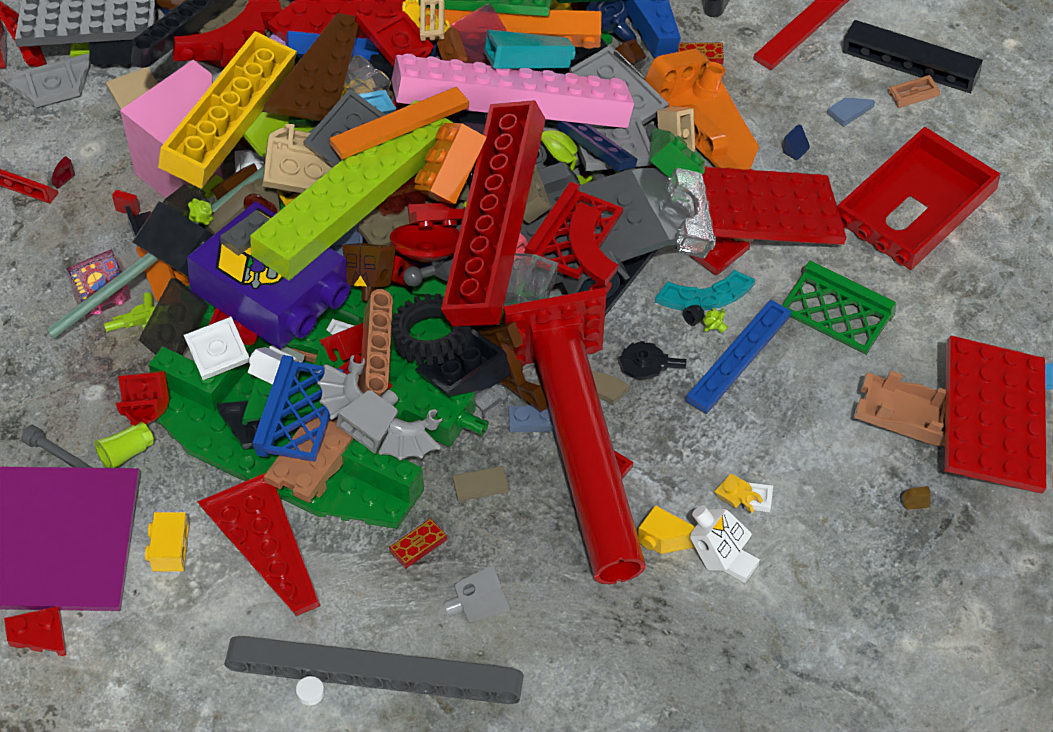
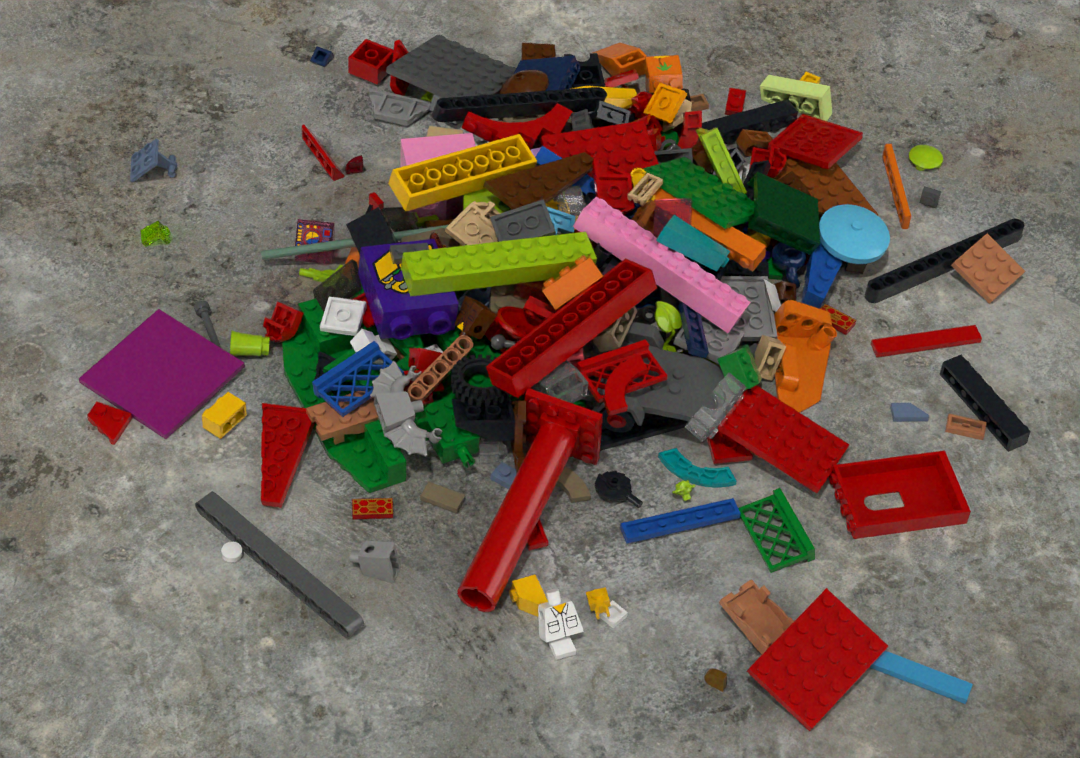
camera: 30 degrees right, 5 degrees down
(200, 211) = (401, 228): lime plant -> none
(399, 122) = (558, 238): orange tile -> none
(693, 314) = (674, 477): black hinge -> none
(796, 143) = (846, 411): dark blue slope -> none

